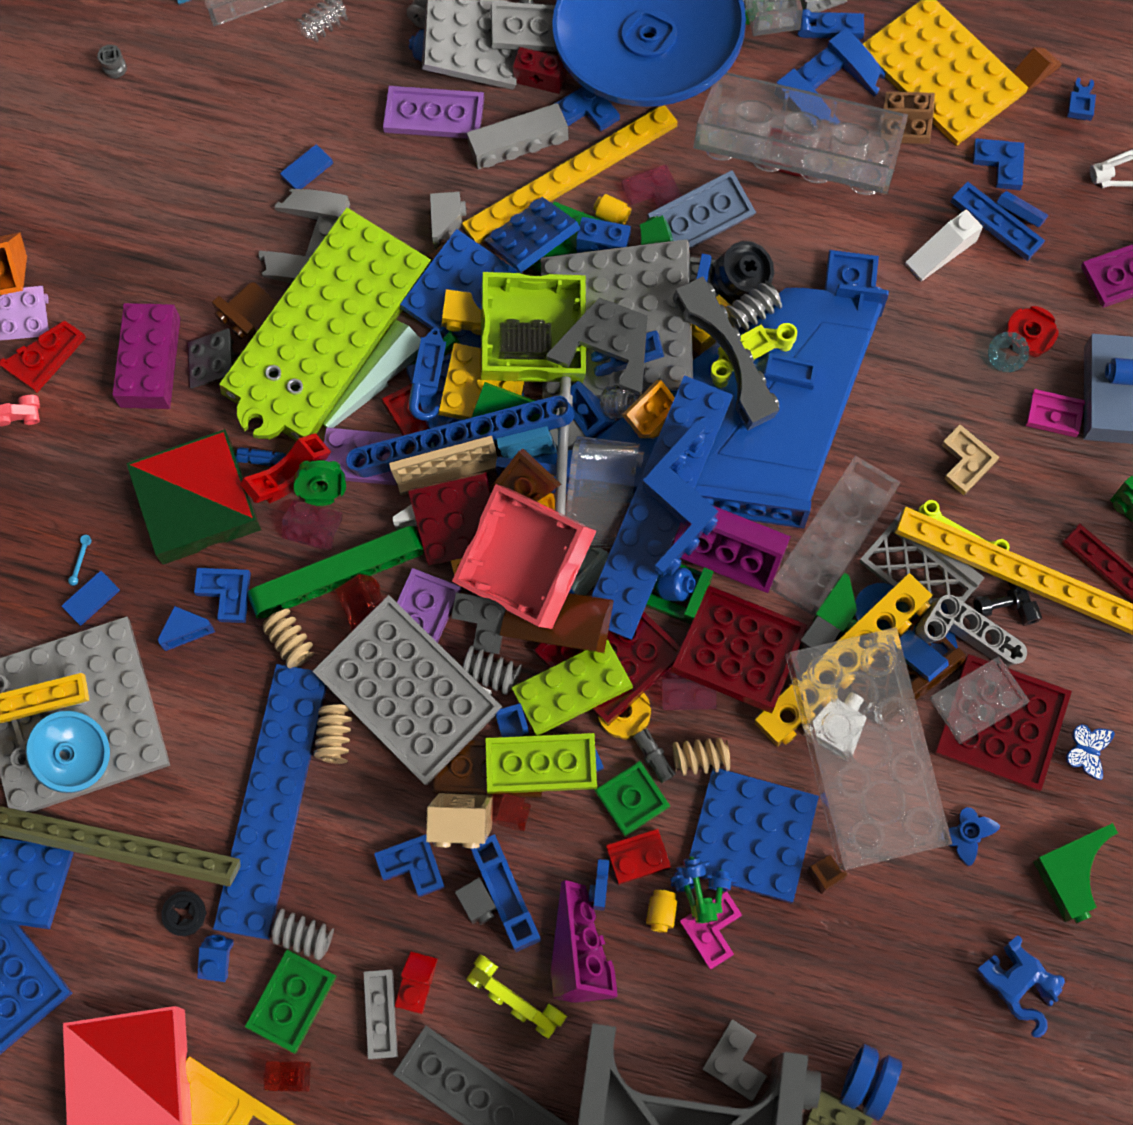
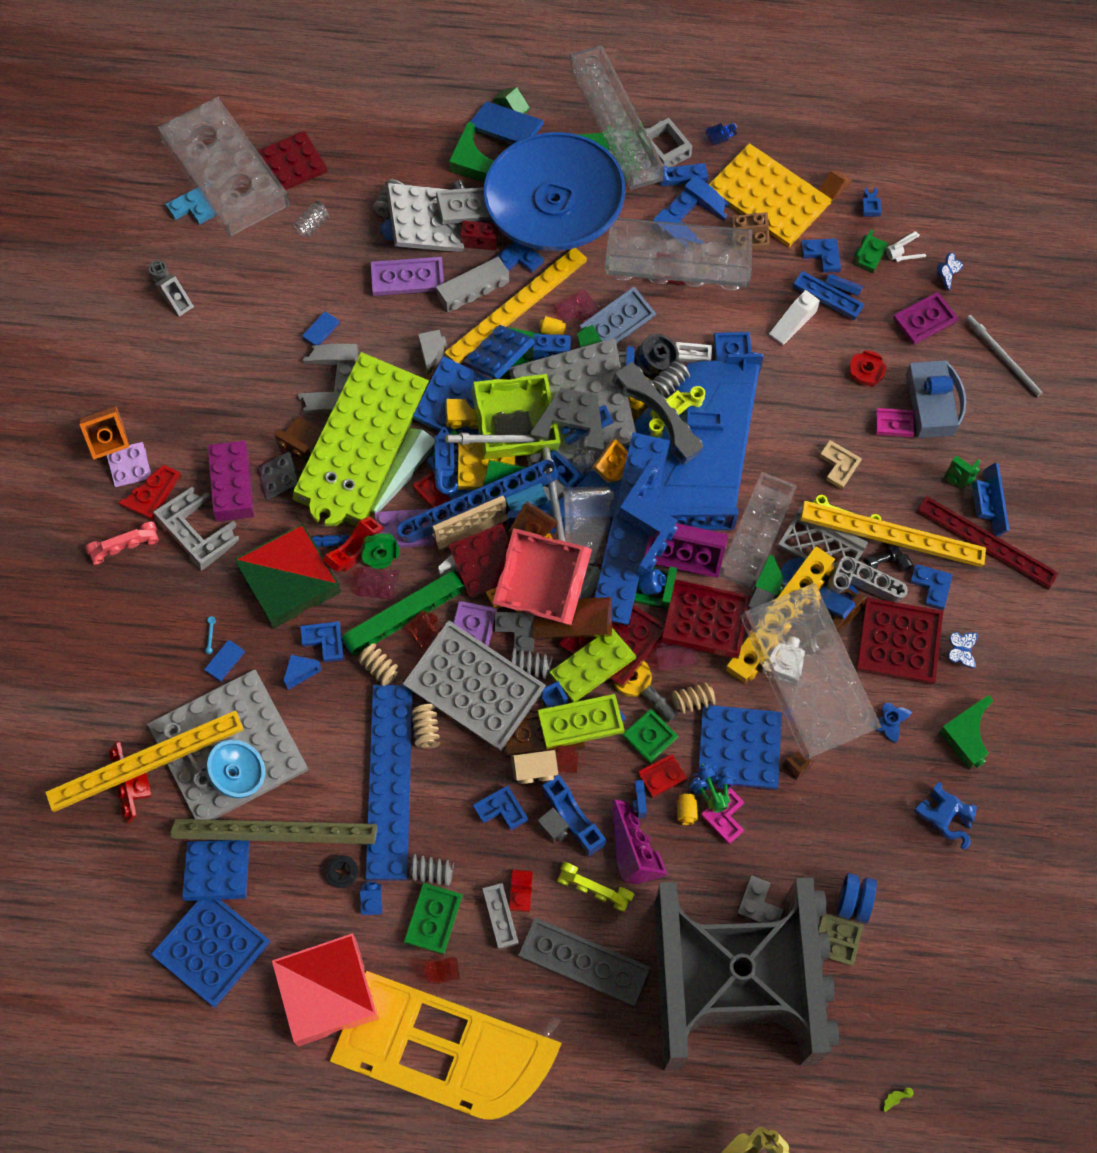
camera: 15 degrees left, 5 degrees down
(61, 396) = (172, 519): none -> light grey wedge
(125, 94) = (174, 294): none -> light grey slope
(454, 350) = (465, 438): none -> light grey bar
(795, 277) = (693, 355): none -> white tile
(979, 700) = (880, 626): clear plate -> none
(997, 356) = (849, 377): clear light blue gear -> none
(1067, 169) = (870, 253): none -> green bracket
(1071, 648) = (936, 581): none -> blue plate

